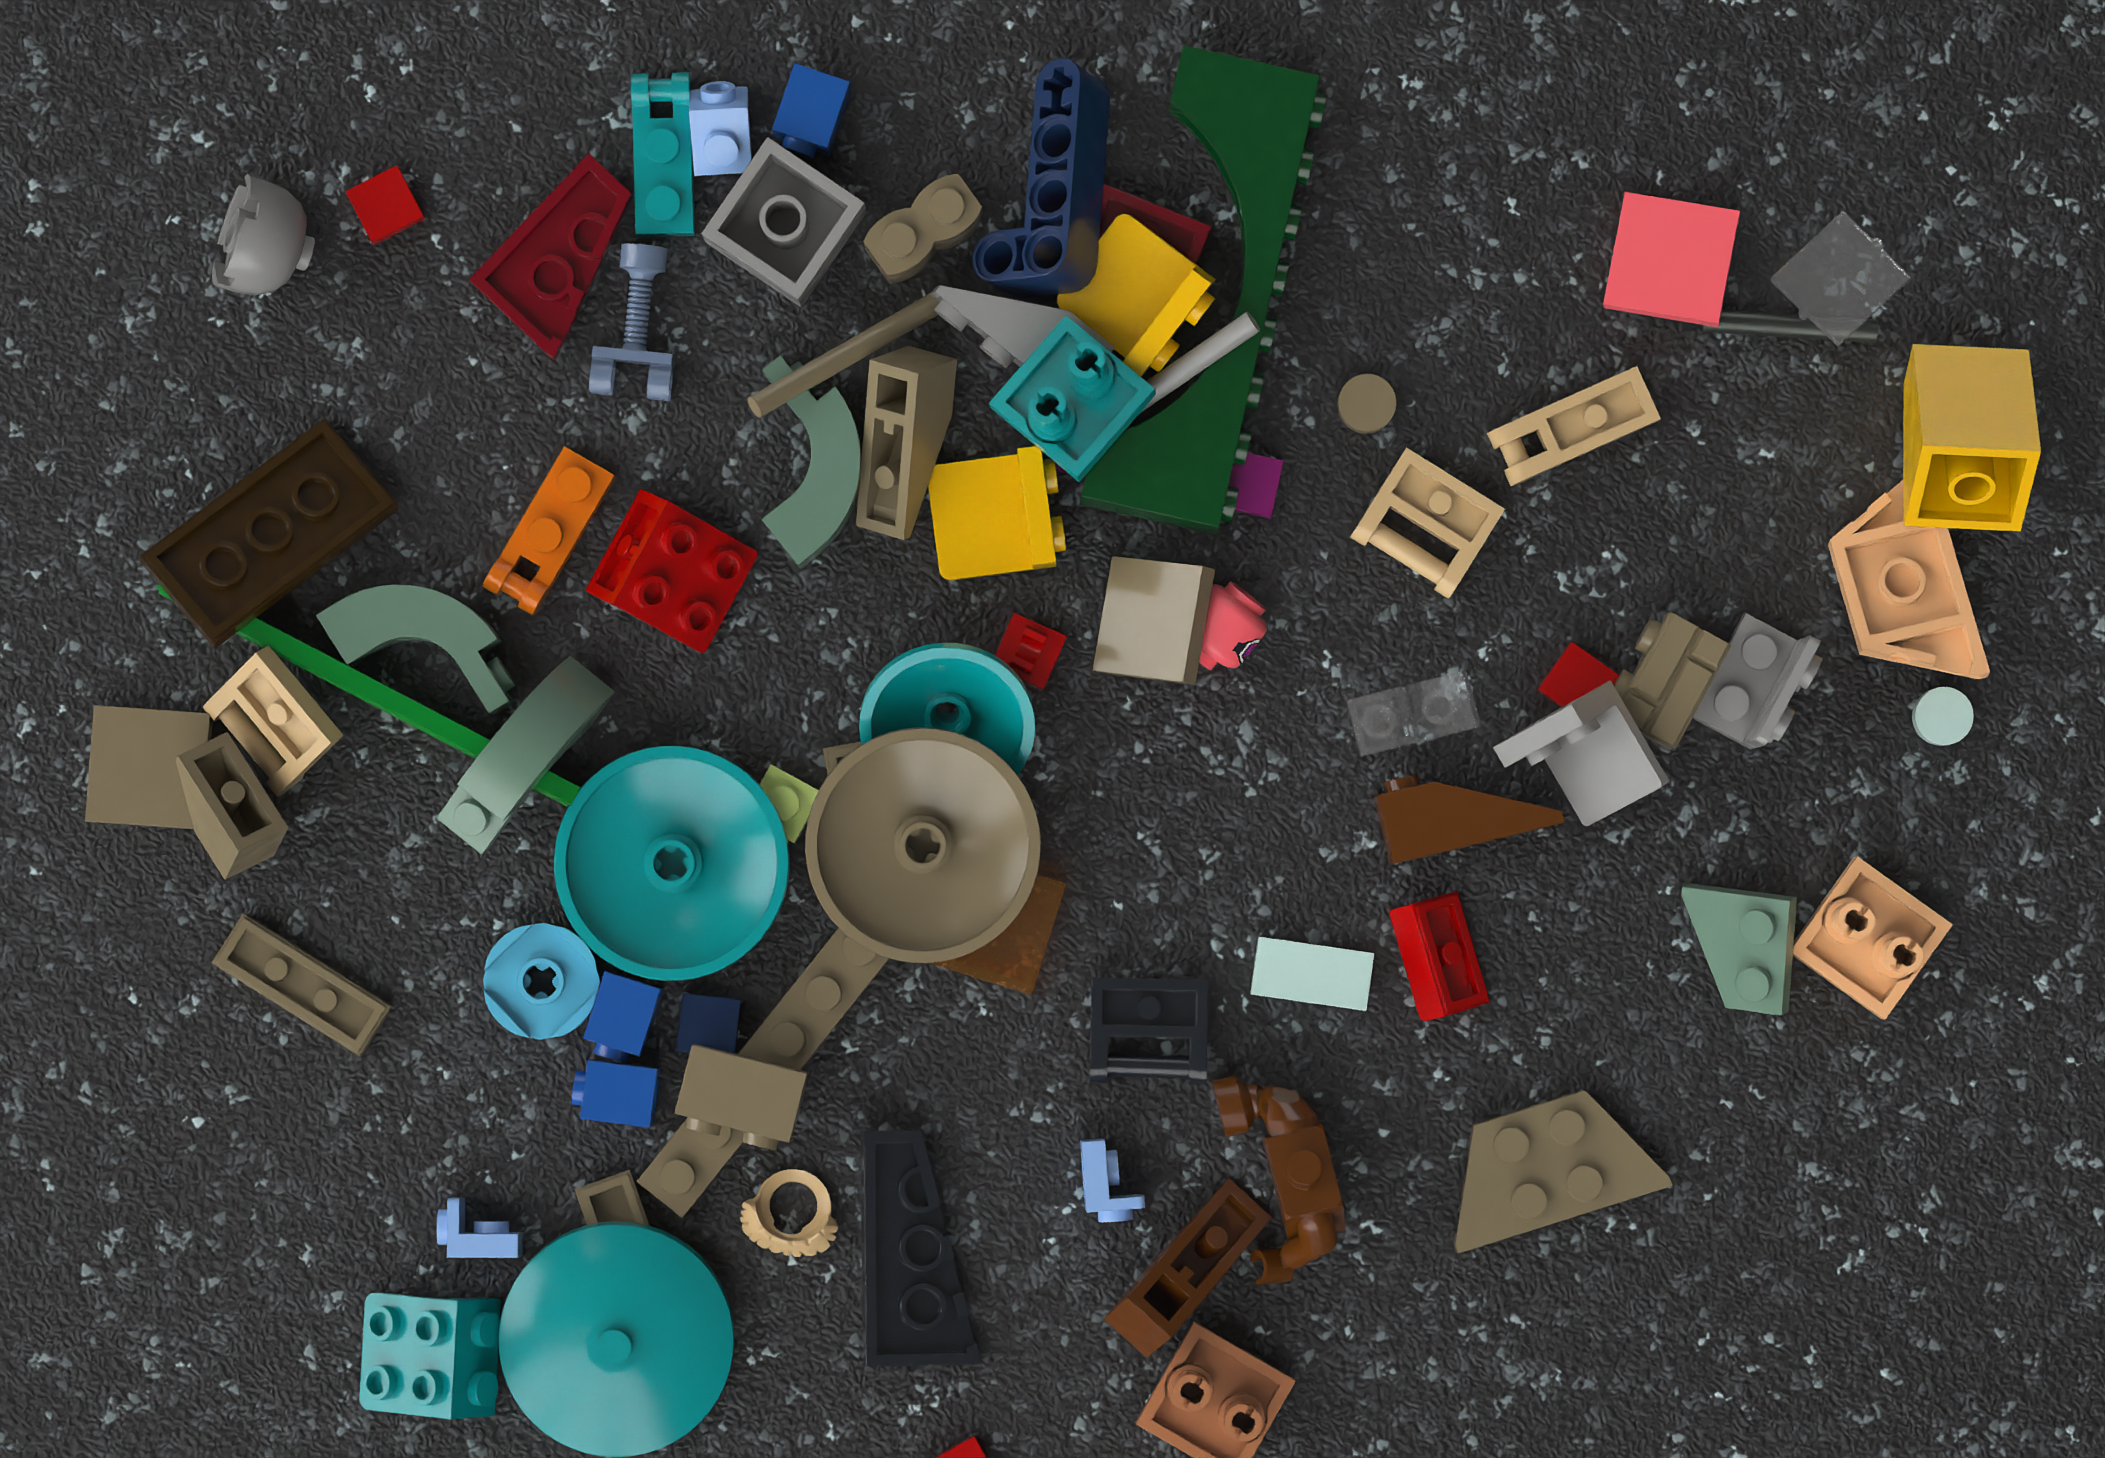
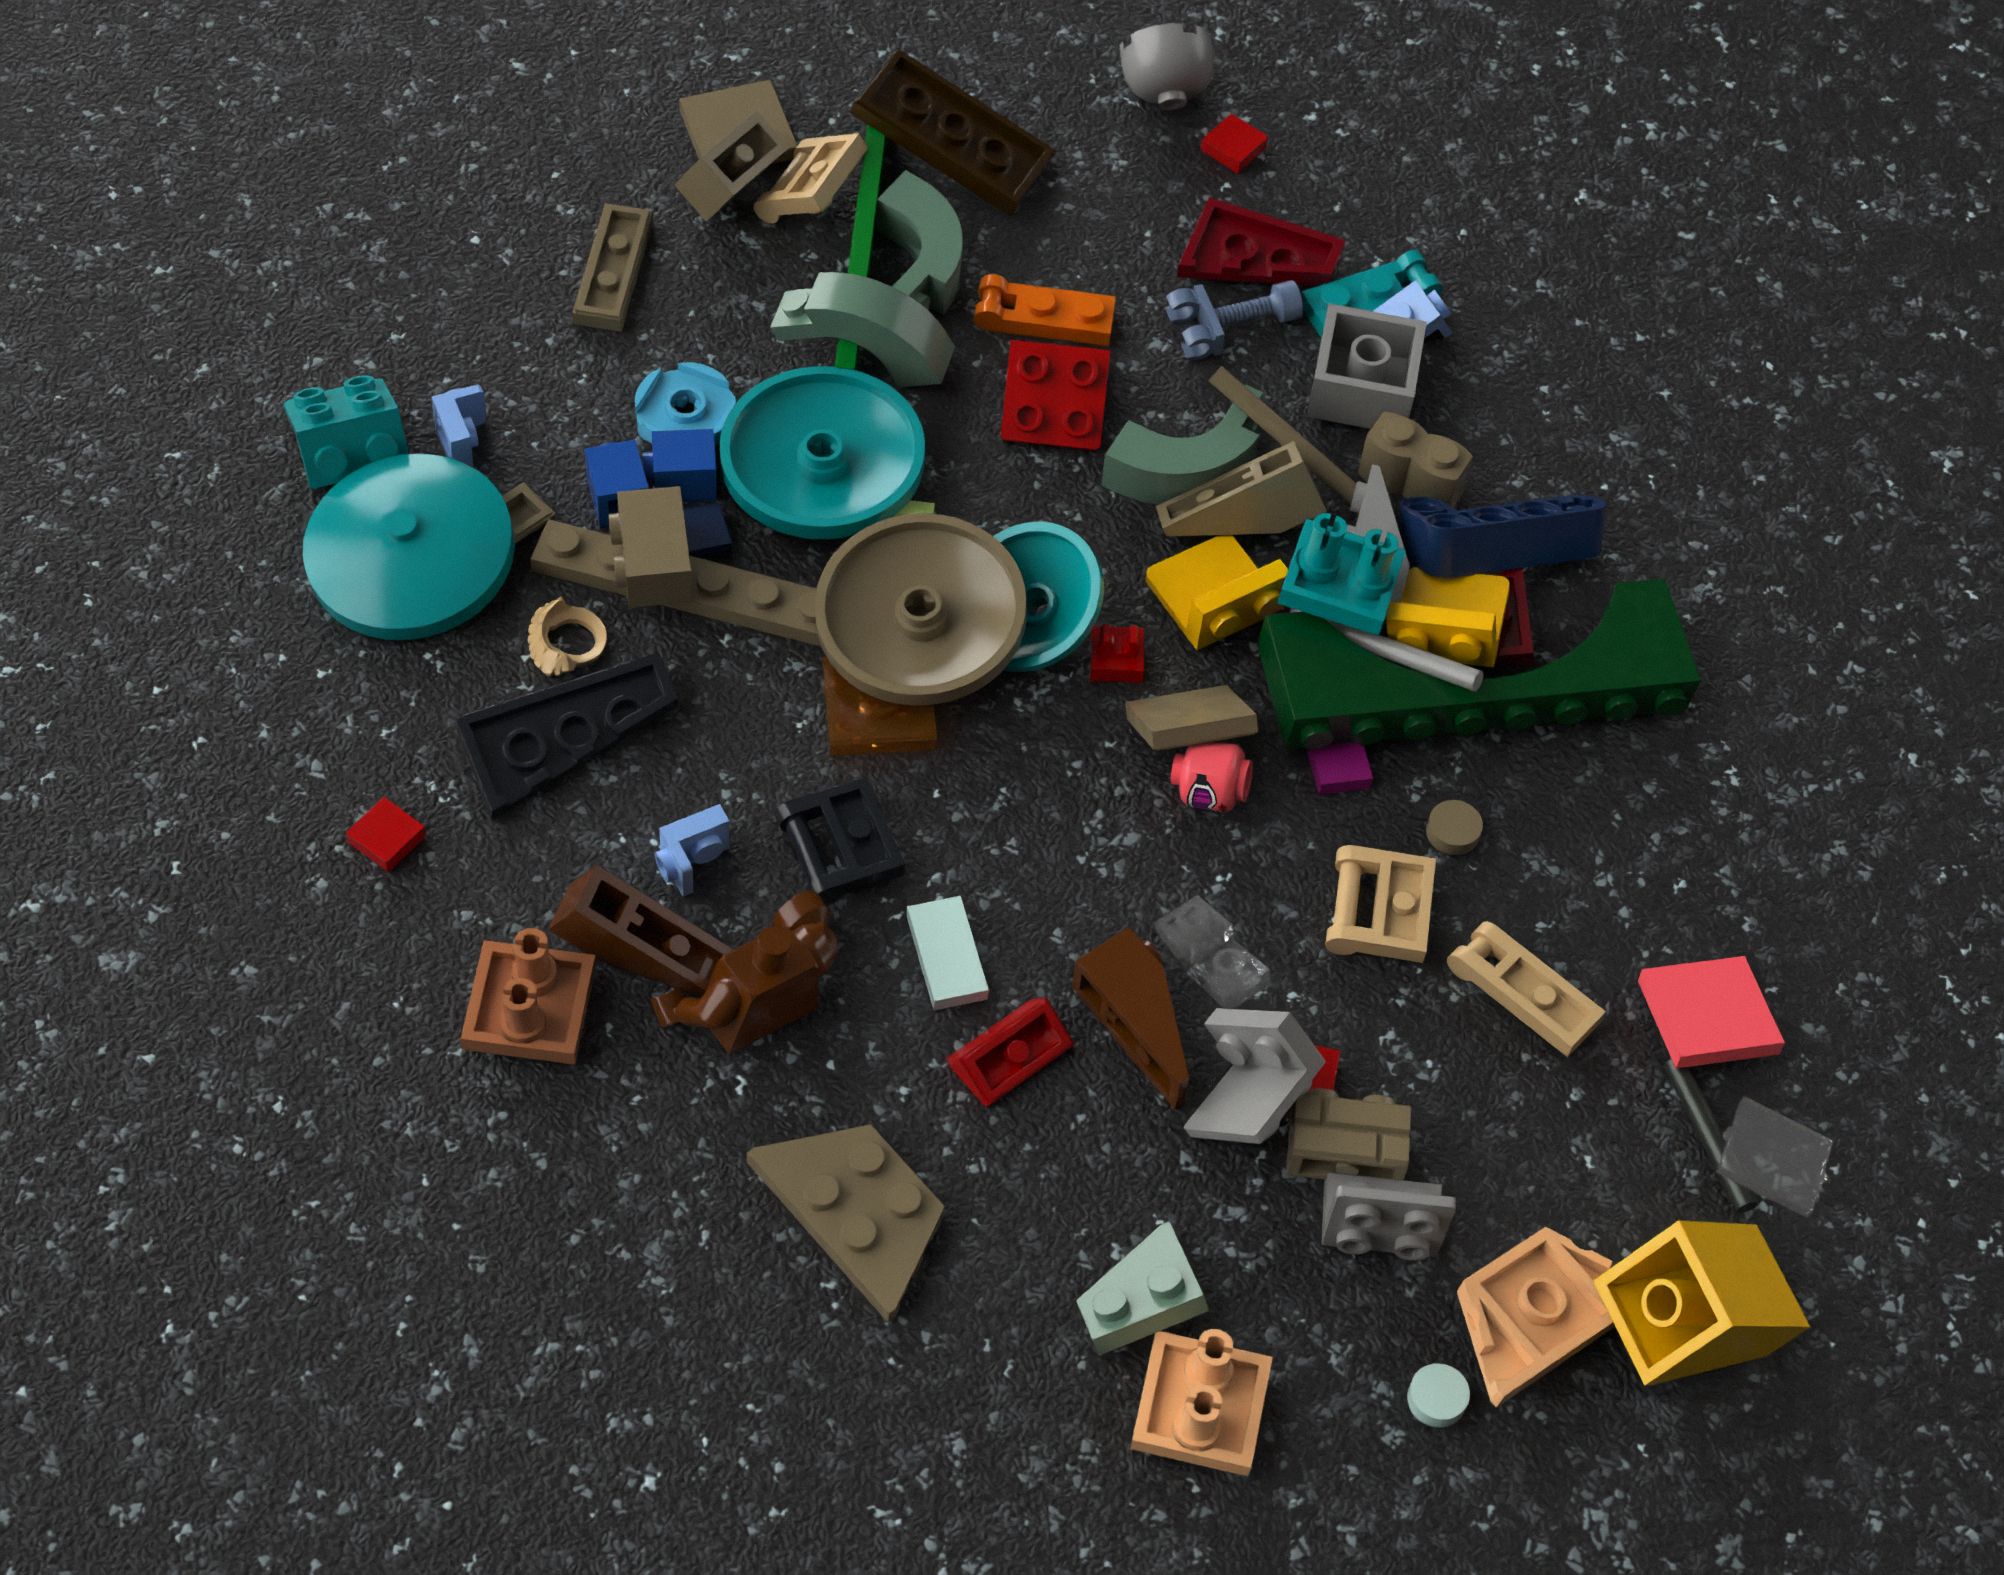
camera: 65 degrees right, 30 degrees down
(811, 112) = (1460, 368): blue brick -> none

